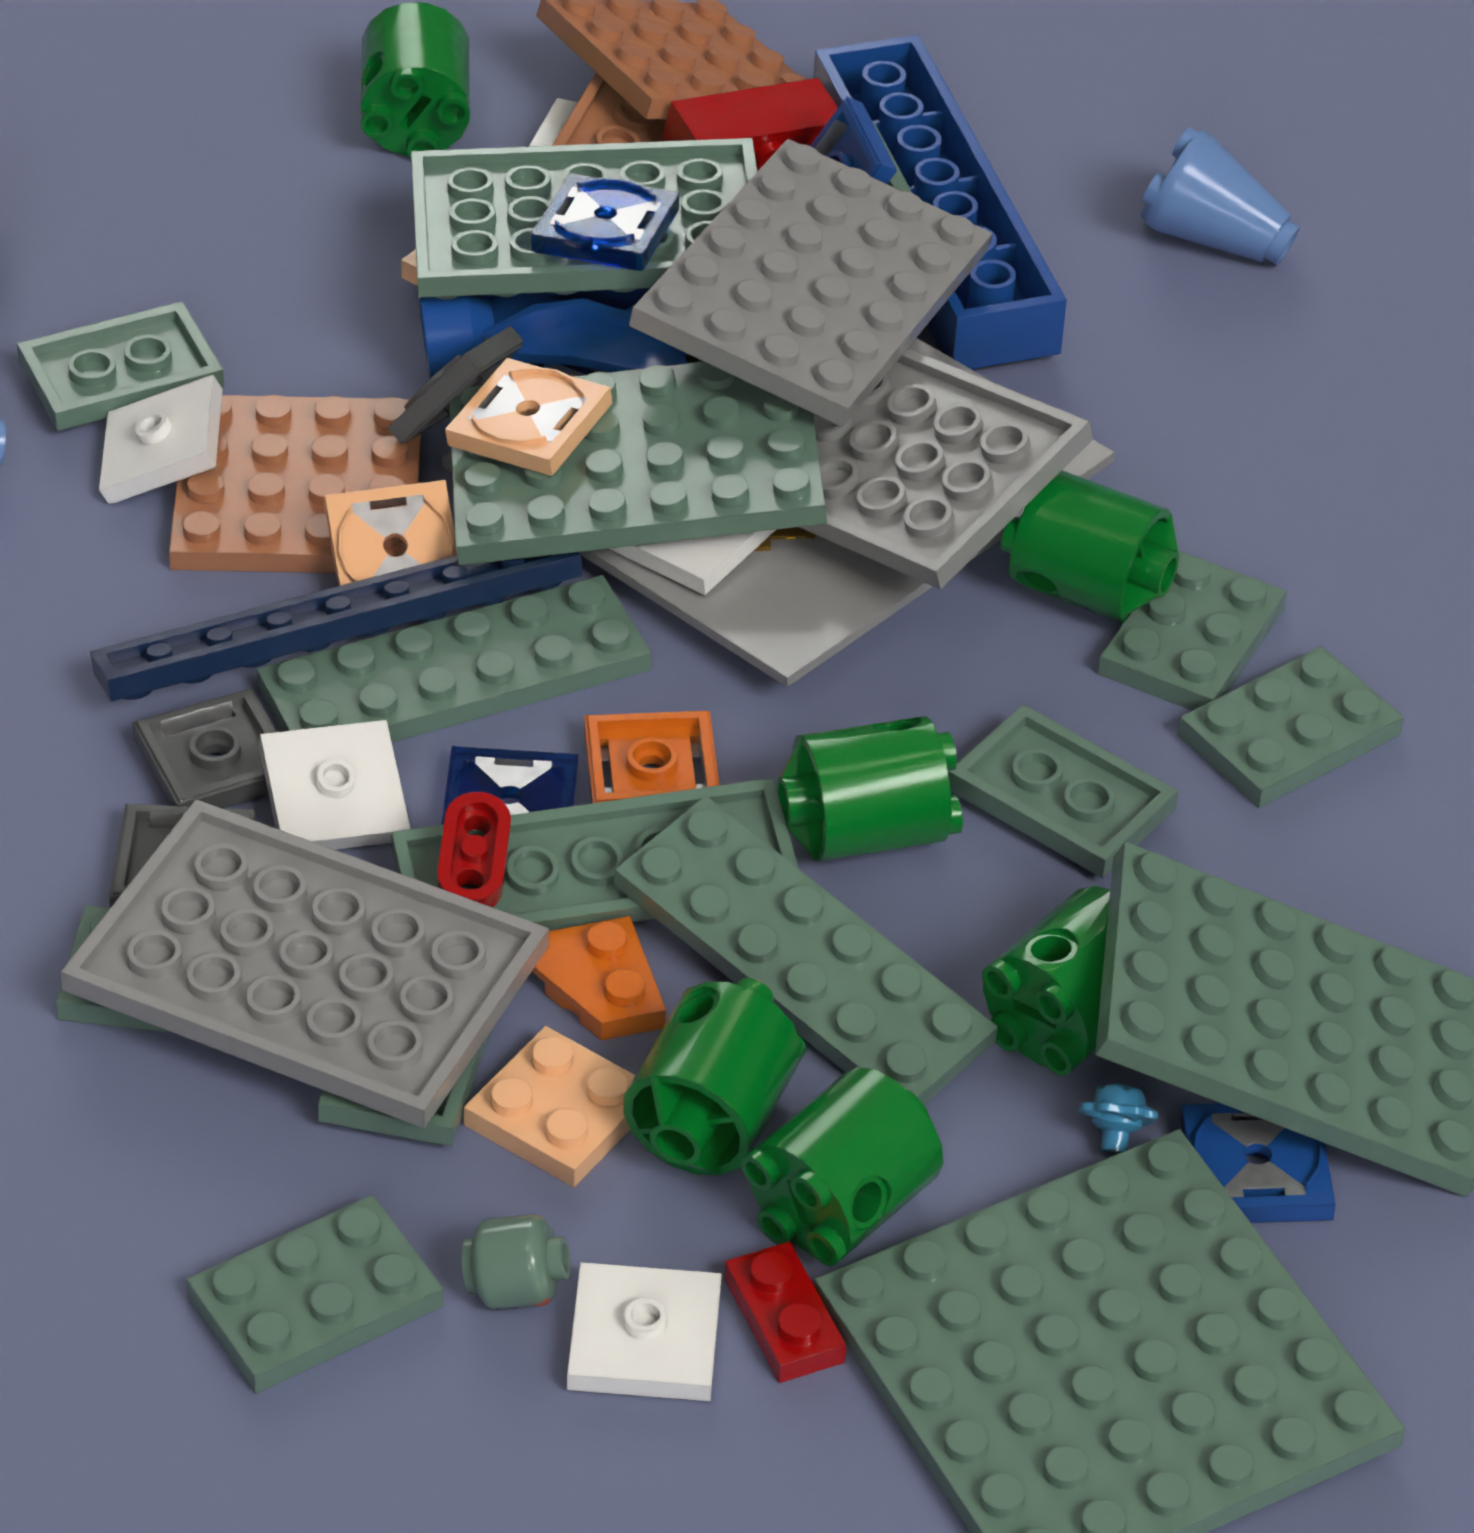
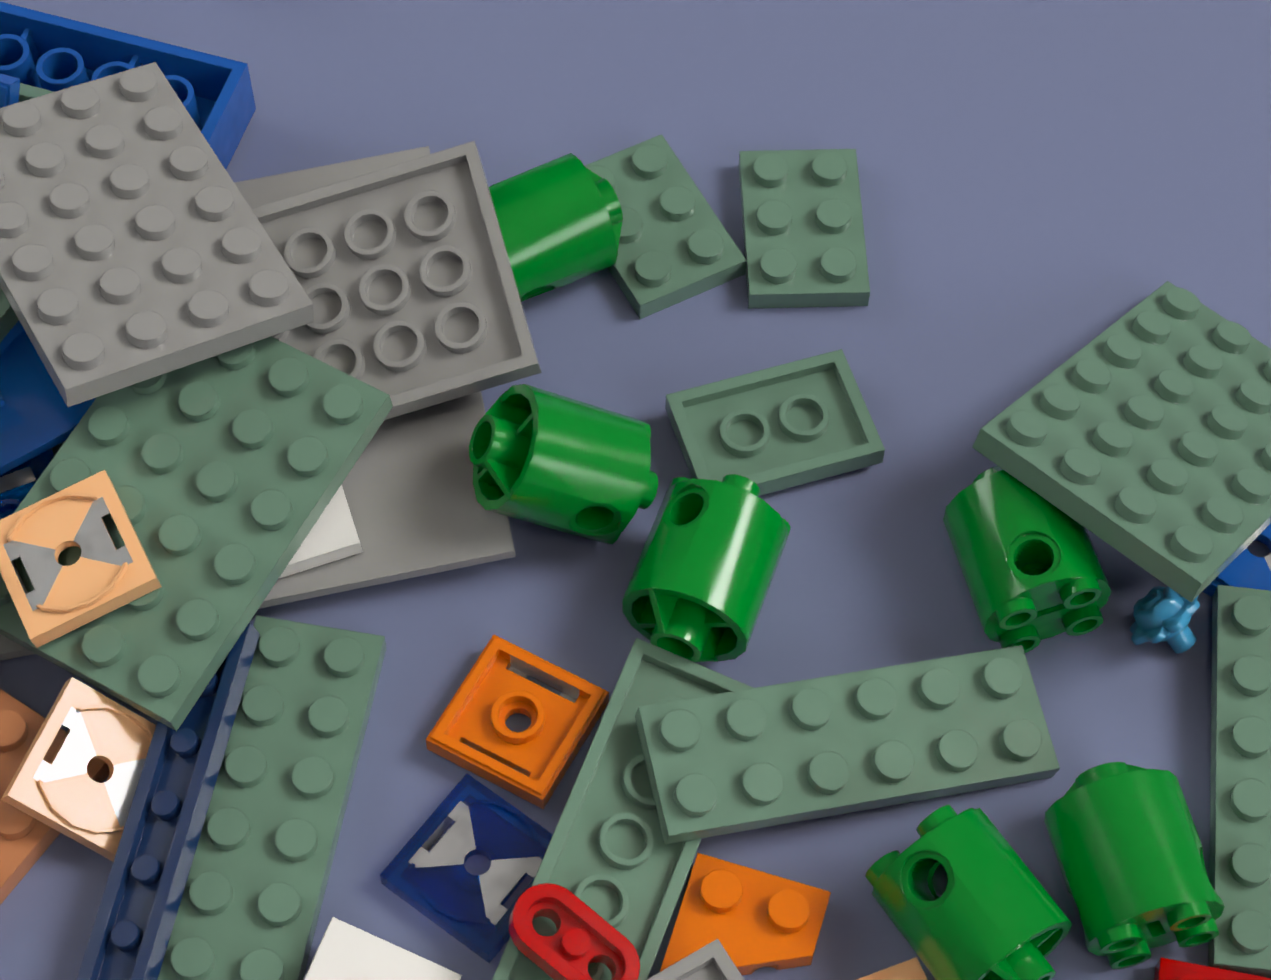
camera: 55 degrees left, 15 degrees up
(876, 645) = (562, 463): none -> green cylinder

